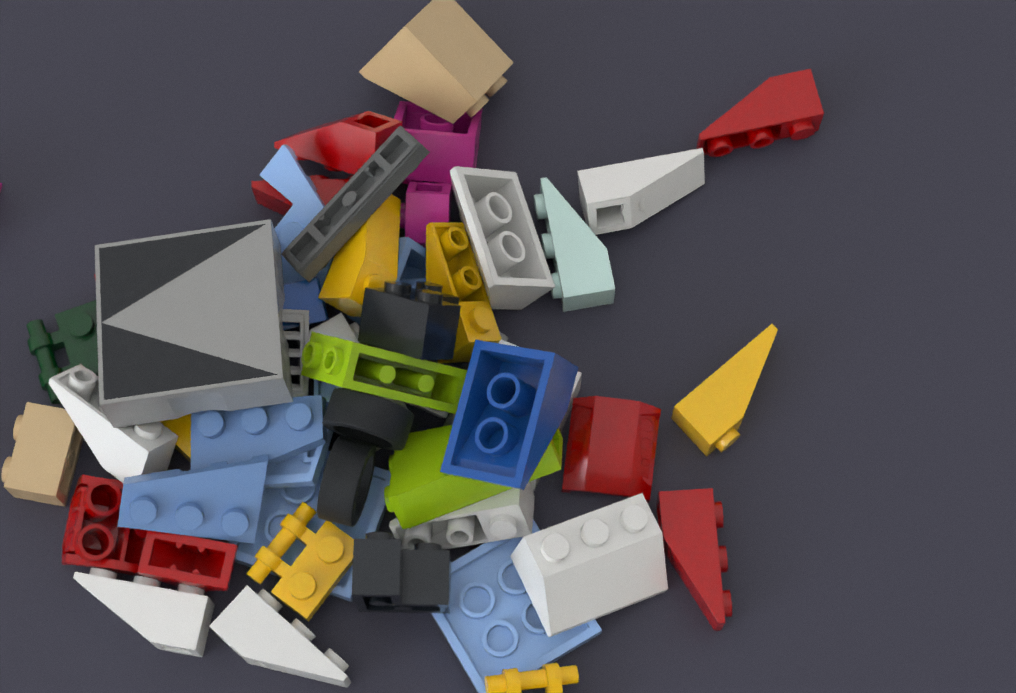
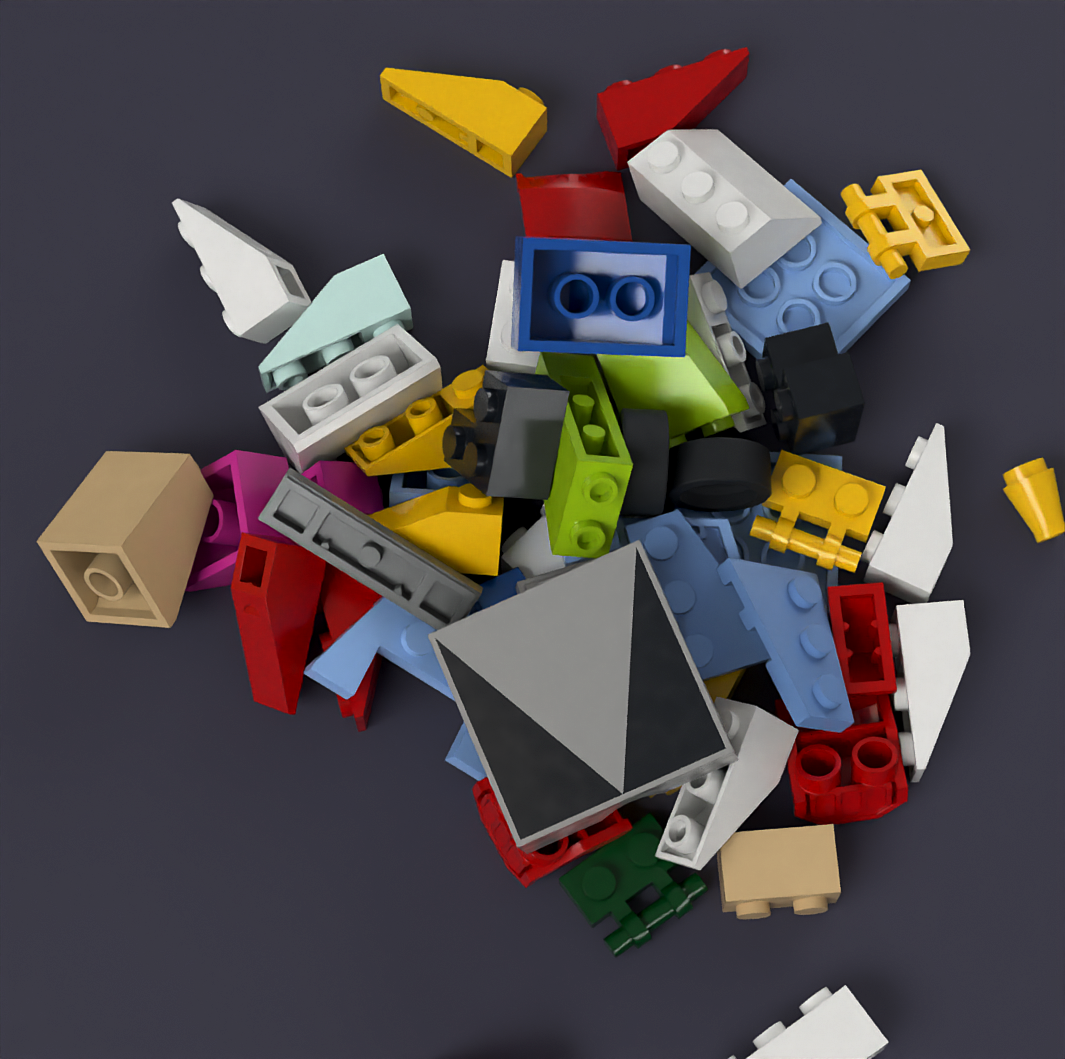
camera: 105 degrees left, 0 degrees up
(773, 111) = (97, 149): red slope -> none

